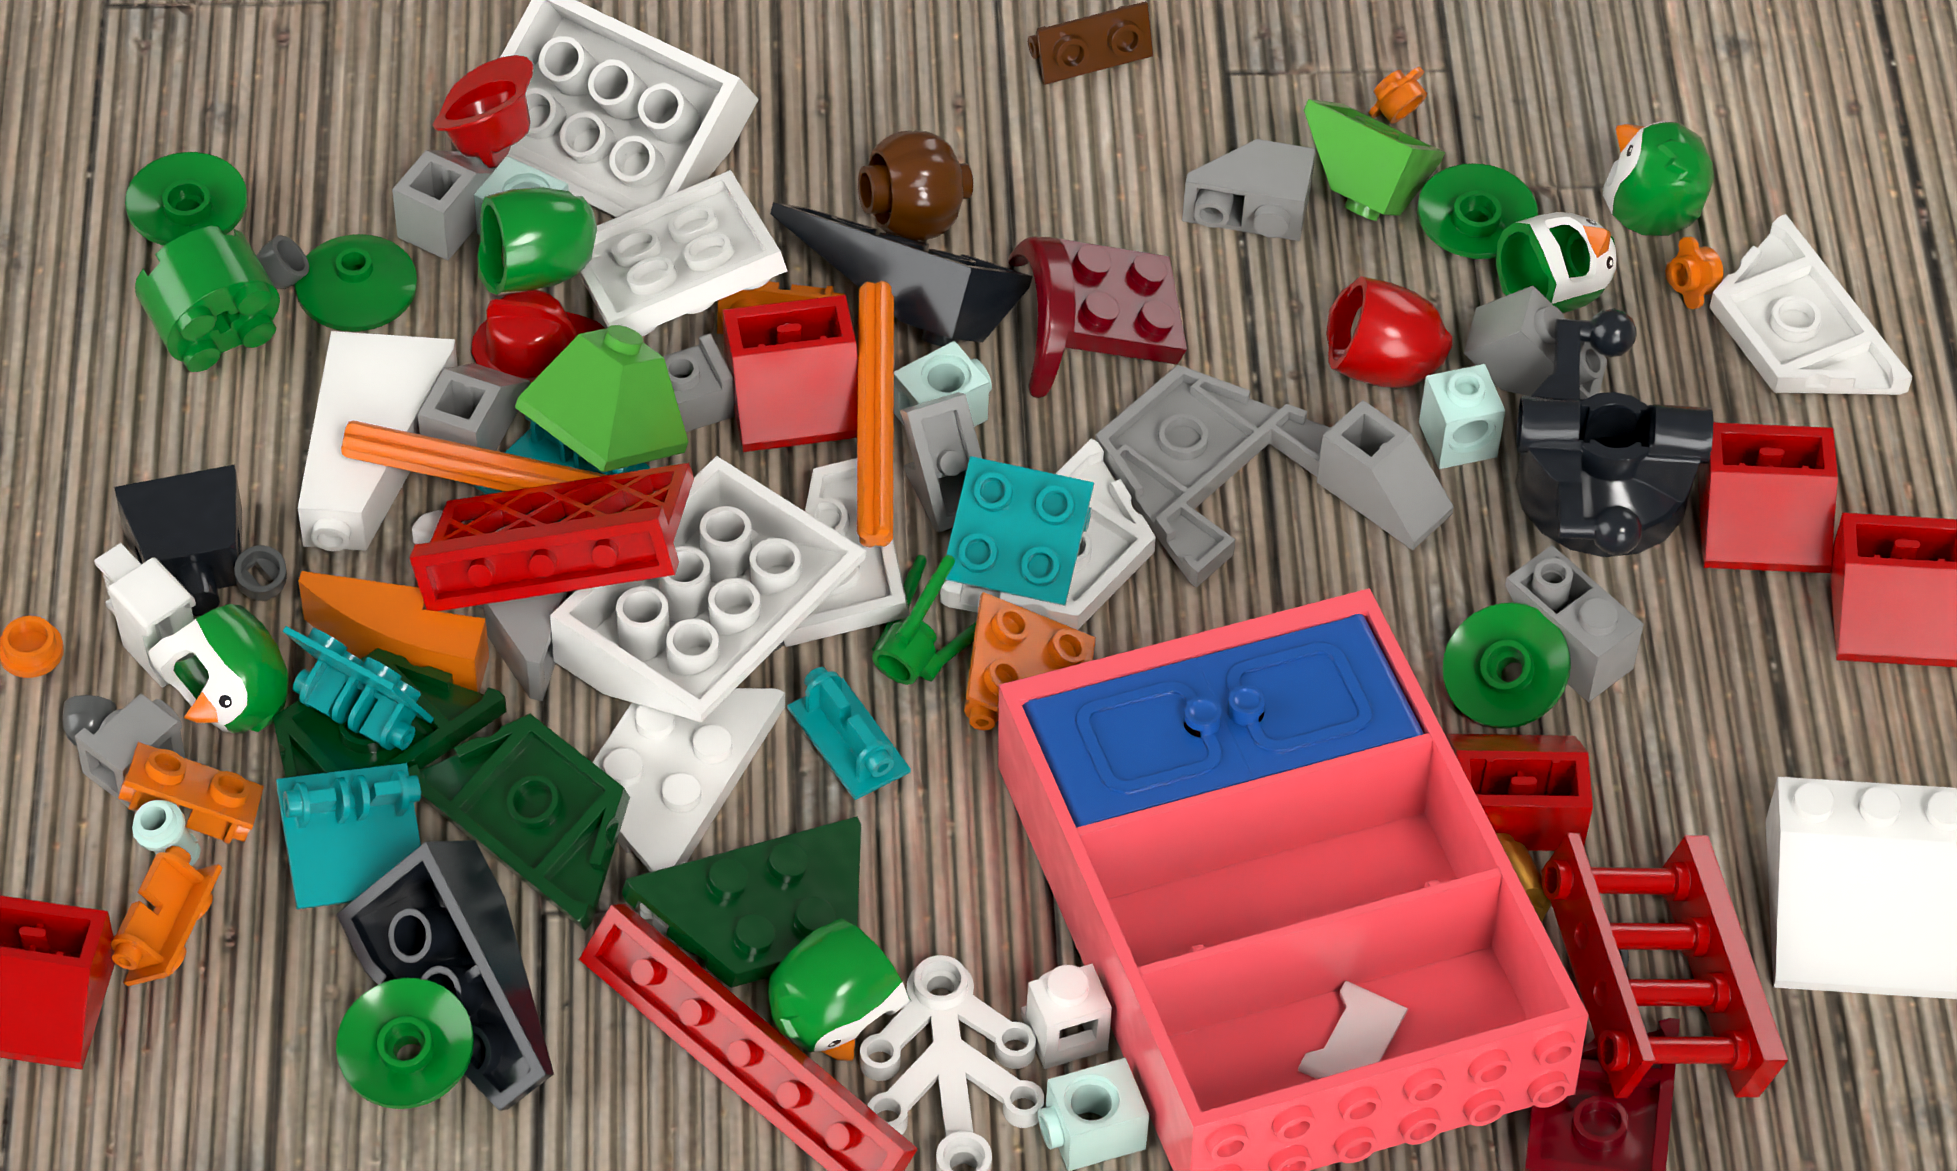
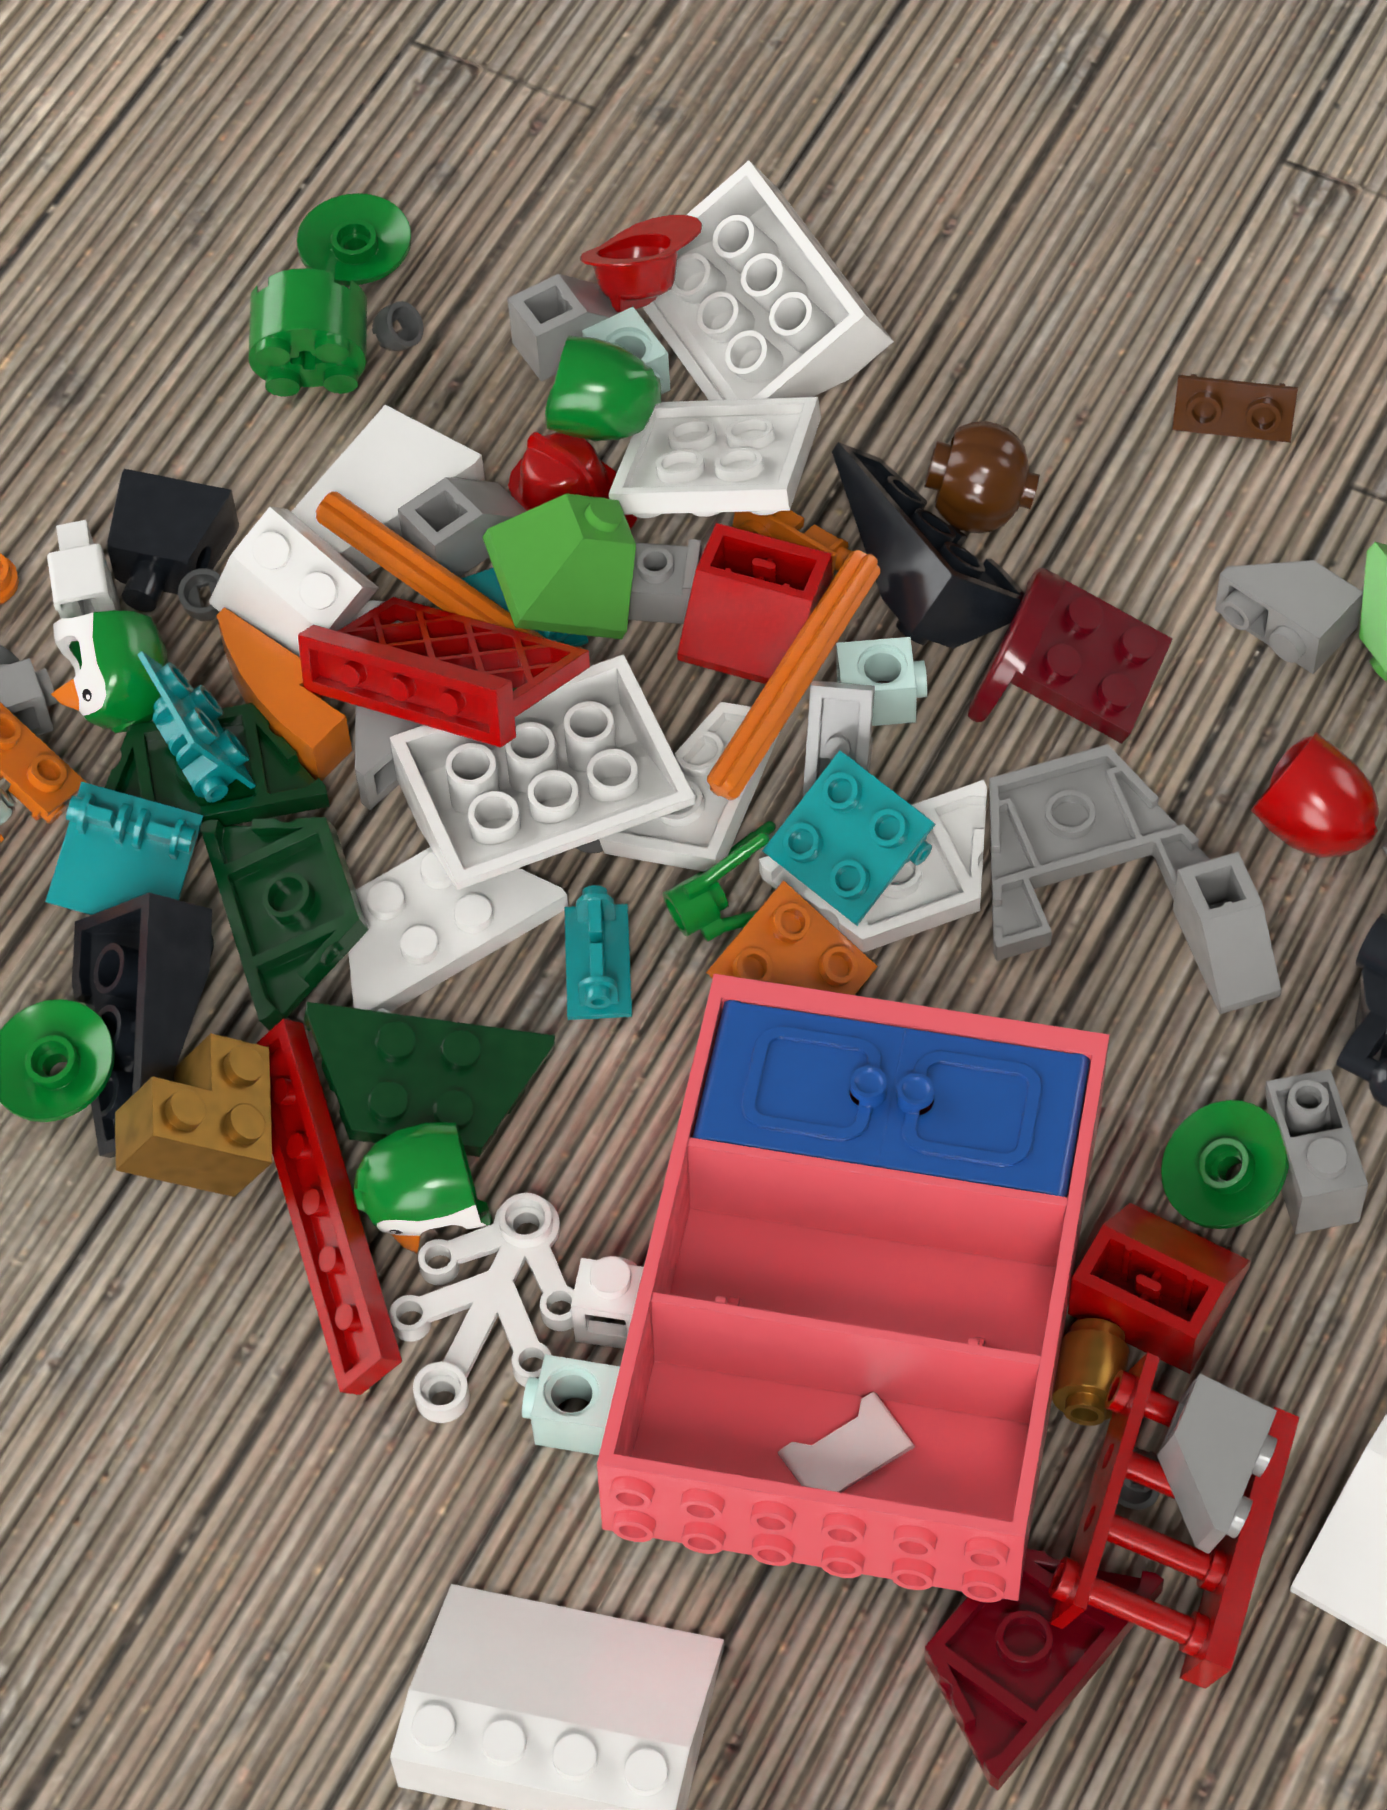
camera: 35 degrees right, 5 degrees up
(357, 283) = (456, 370): green dish -> none
(359, 522) = (289, 580): none -> white slope
(597, 1024) = (206, 1125): none -> pearl gold brick
(1461, 416) = (1341, 906): light aqua brick -> none
(1673, 894) = (1210, 1455): none -> light grey slope

